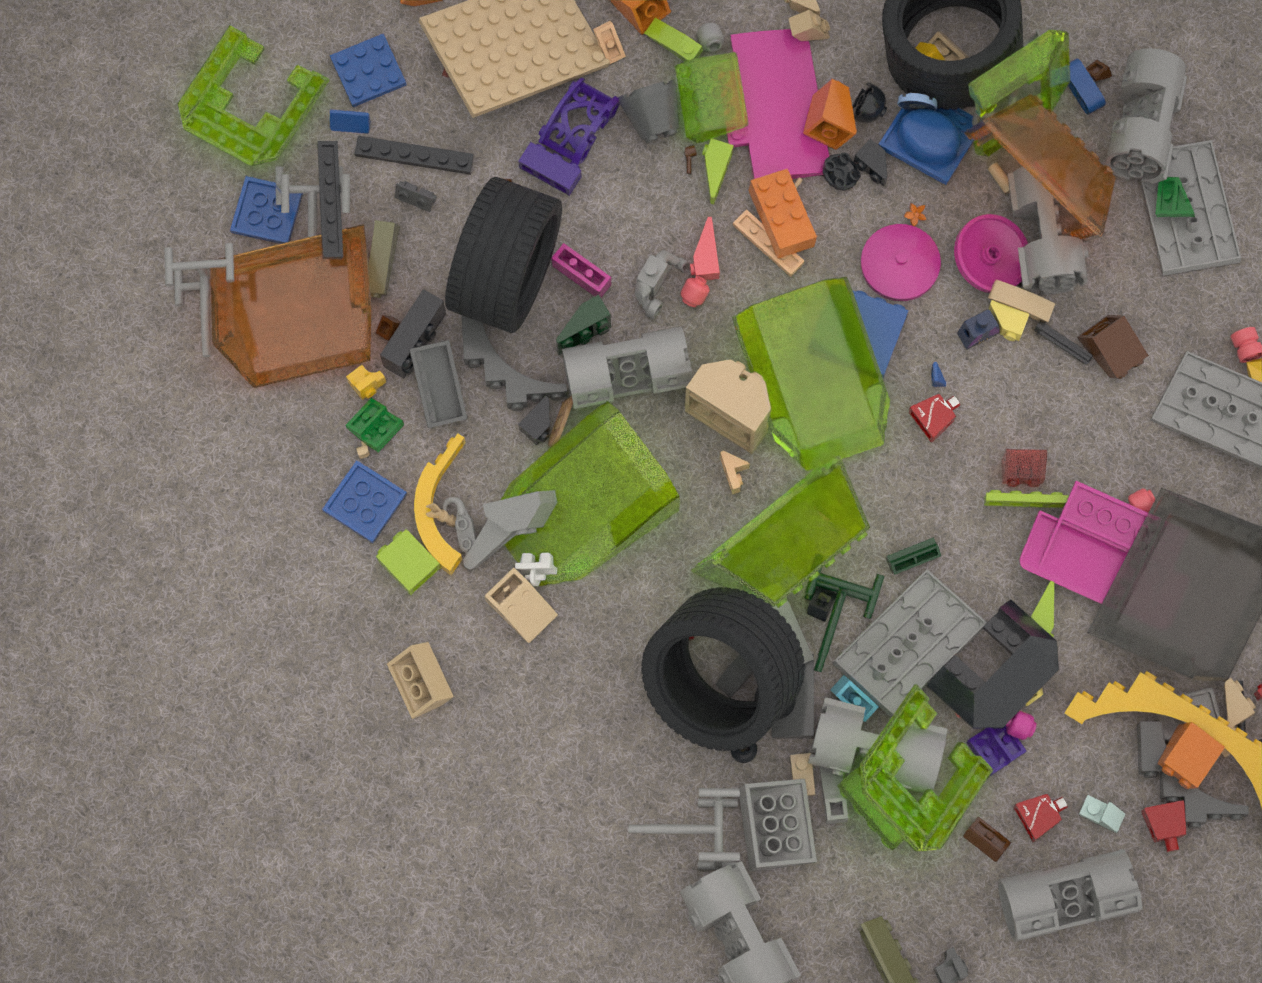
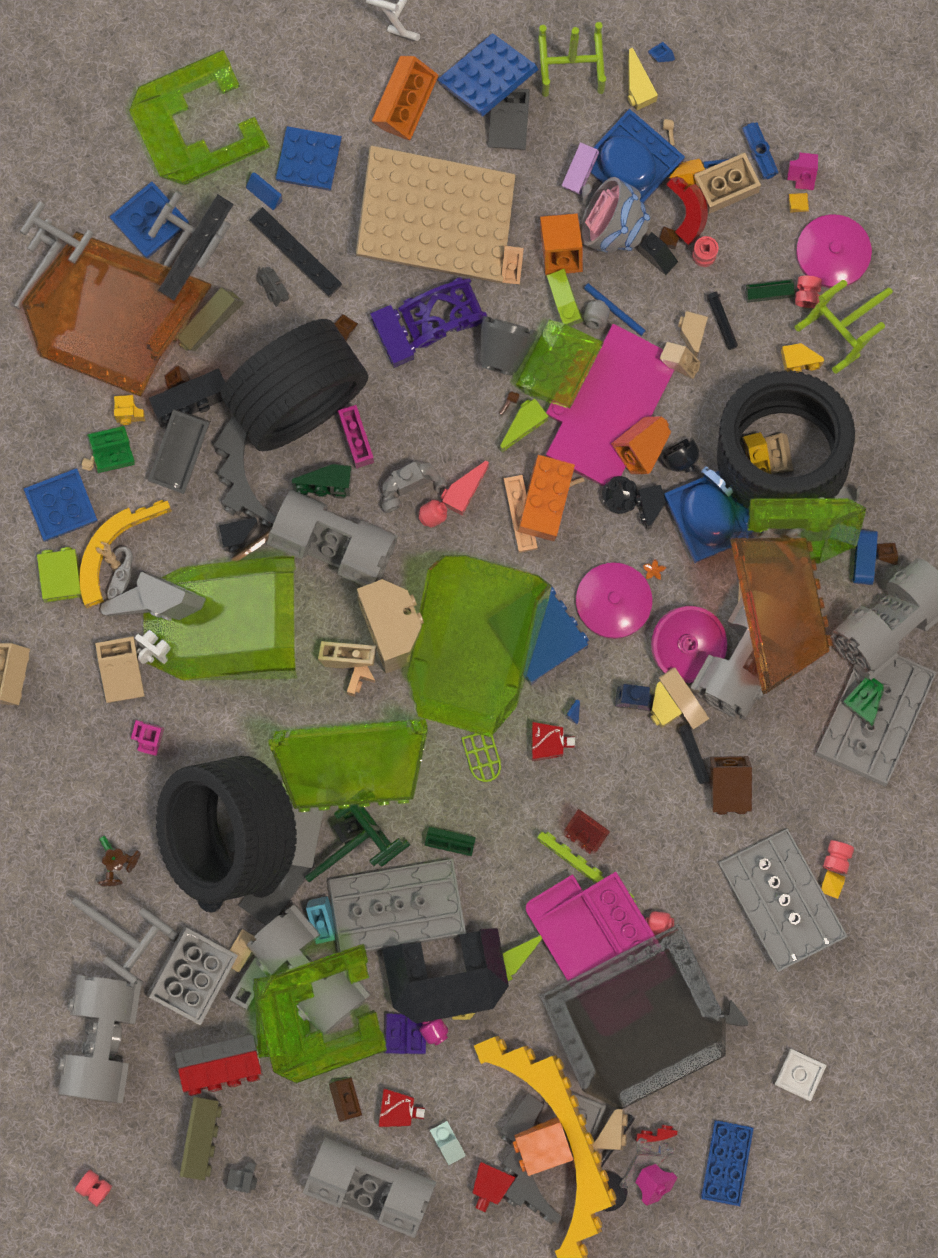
camera: 30 degrees right, 5 degrees up
(588, 646) = (148, 736): none -> dark pink brick
(637, 771) = (114, 860): none -> reddish brown plant
(711, 457) = (346, 655): none -> tan slope
(723, 24) = (614, 309): none -> blue bar
(862, 881) = (219, 1065): none -> red piece
(890, 476) = (480, 765): none -> lime window

